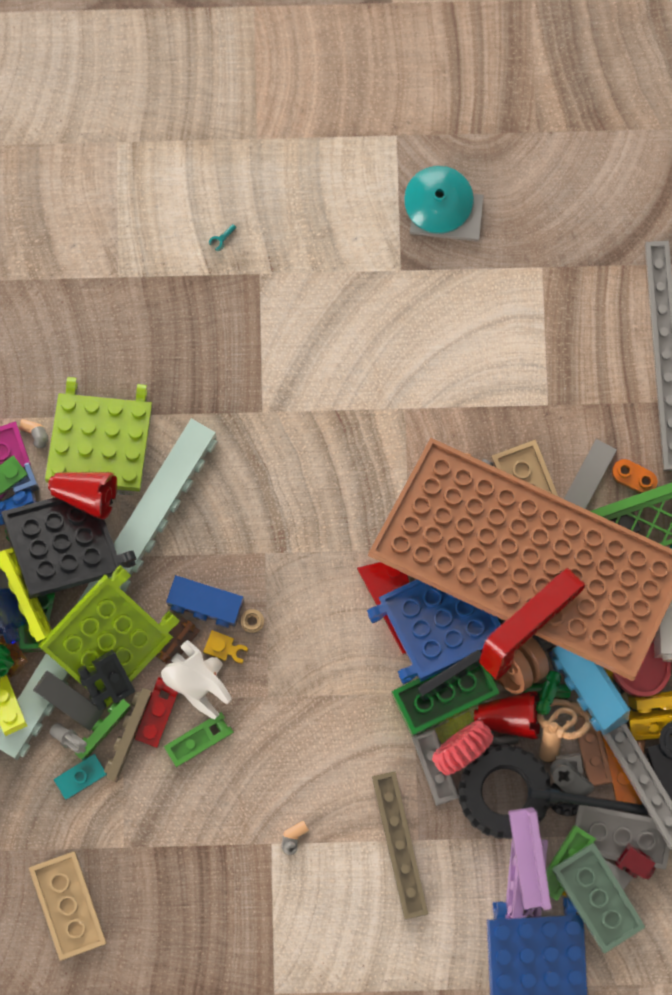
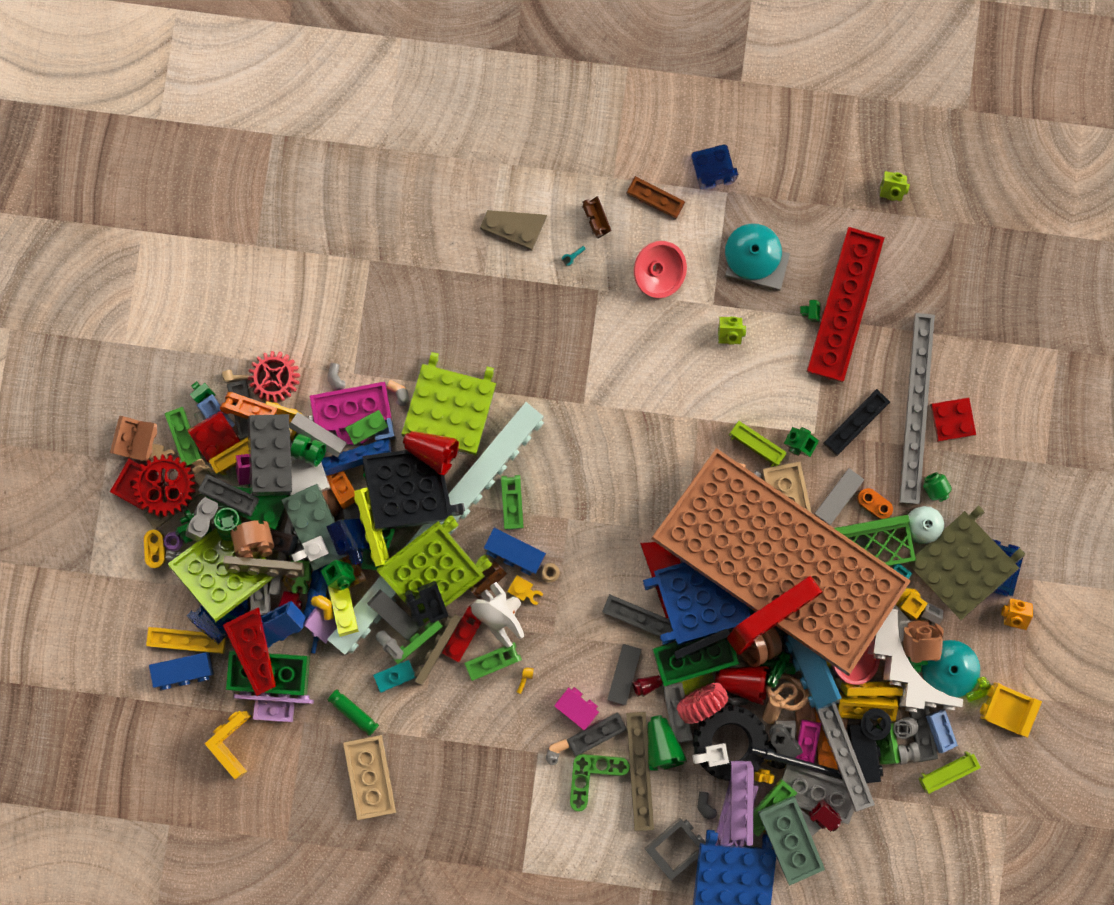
camera: 10 degrees right, 5 degrees up
(35, 829) = (353, 712): none -> green axle
(146, 214) = (514, 226): none -> dark tan wing
(193, 544) = (512, 503): none -> bright green plate
(242, 748) = (527, 673): none -> yellow hand
(245, 188) = (598, 219): none -> reddish brown hinge
(310, 780) = (577, 708): none -> dark pink brick
(311, 154) = (655, 197): none -> dark orange tile
(339, 809) = (596, 734): none -> dark grey tile
(340, 851) = (591, 768): none -> bright green beam
(341, 233) = (669, 270): none -> coral dish
(362, 730) = (624, 674): none -> dark grey tile
(365, 656) = (637, 616): none -> dark grey plate
(375, 107) = (714, 167): none -> clear blue bracket
(390, 739) = (646, 685): none -> dark red cone
(423, 809) = (663, 745): none -> green cone
(426, 296) = (731, 330): none -> lime brick
(443, 952) = (671, 874): none -> dark grey window
(480, 426) = (757, 443): none -> lime container
(486, 806) = (714, 755): none -> white plate
(486, 878) = (703, 806): none -> dark grey arm
(521, 258) = (812, 310): none -> green tile
(532, 415) = (801, 441): none -> green brick
(552, 826) = (764, 775): none -> yellow plate
(559, 245) = (845, 304): none -> red plate
(595, 97) = (894, 186): none -> lime brick
(596, 383) = (856, 422): none -> black tile
(600, 773) = (808, 739): none -> dark pink tile

